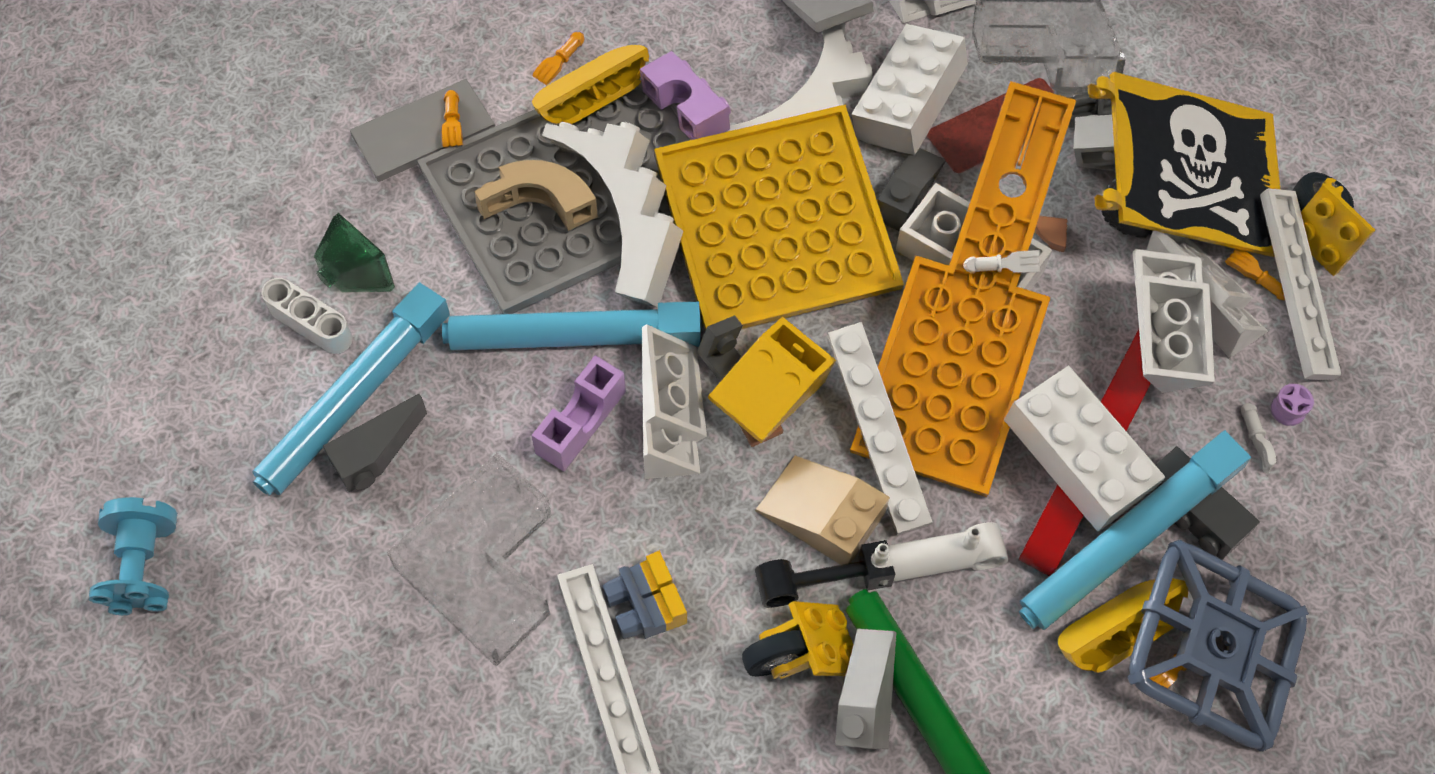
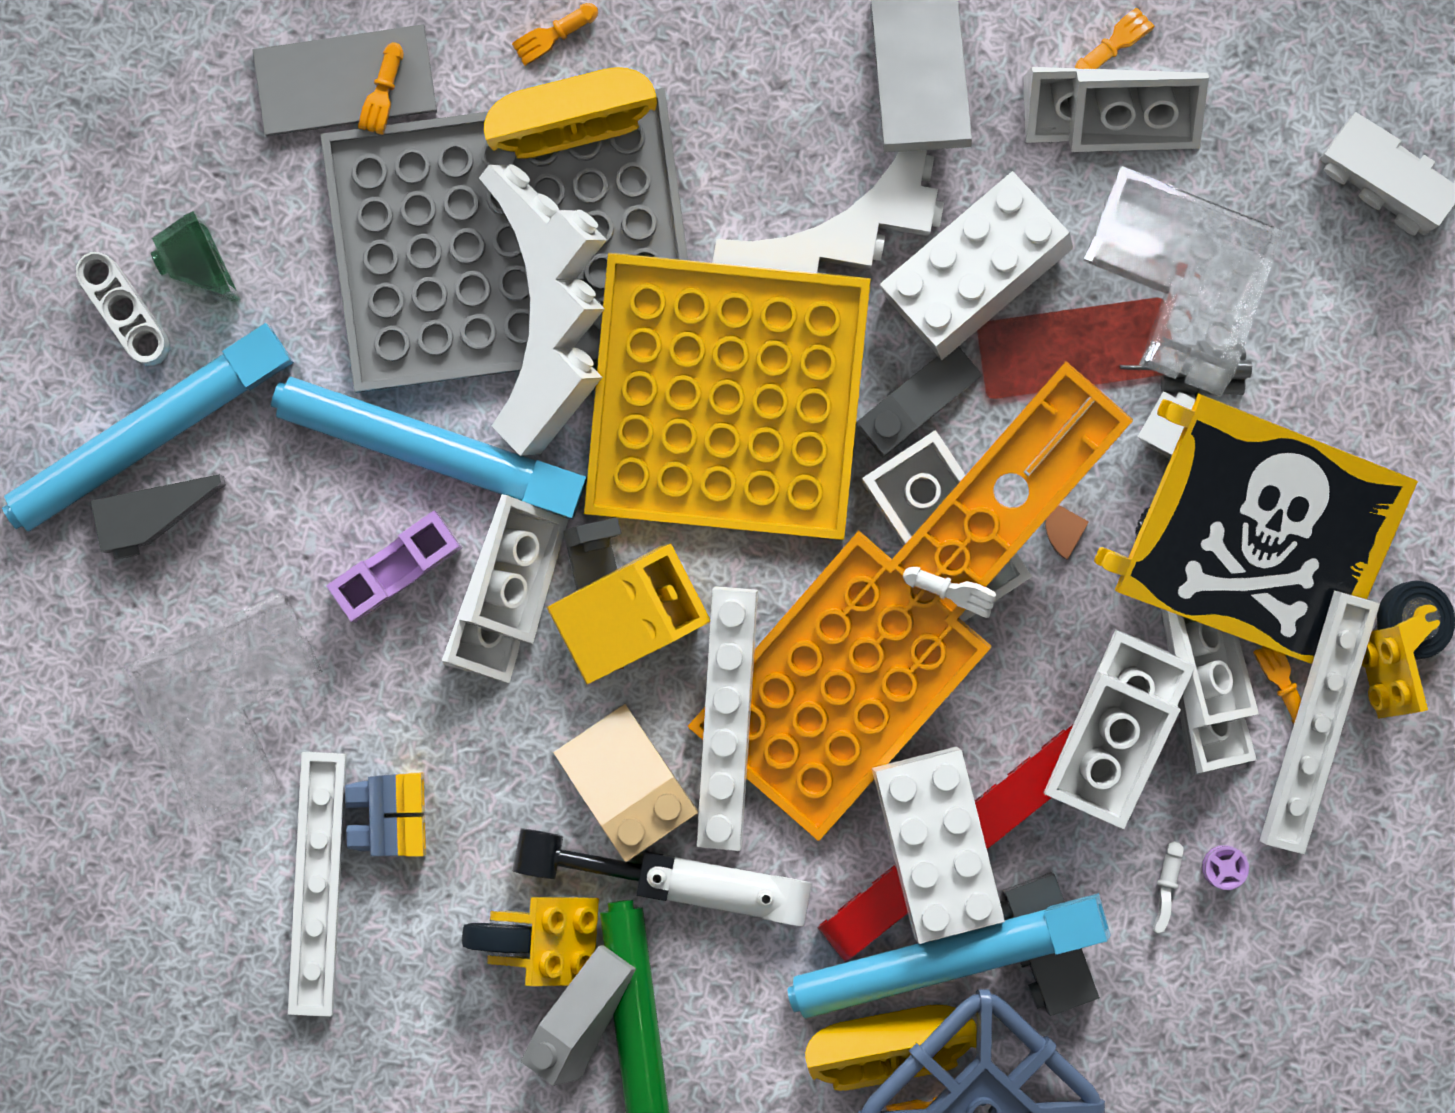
camera: 20 degrees right, 25 degrees up
(539, 183) = (479, 260): tan arch -> none
(673, 81) = (673, 147): lavender arch -> none

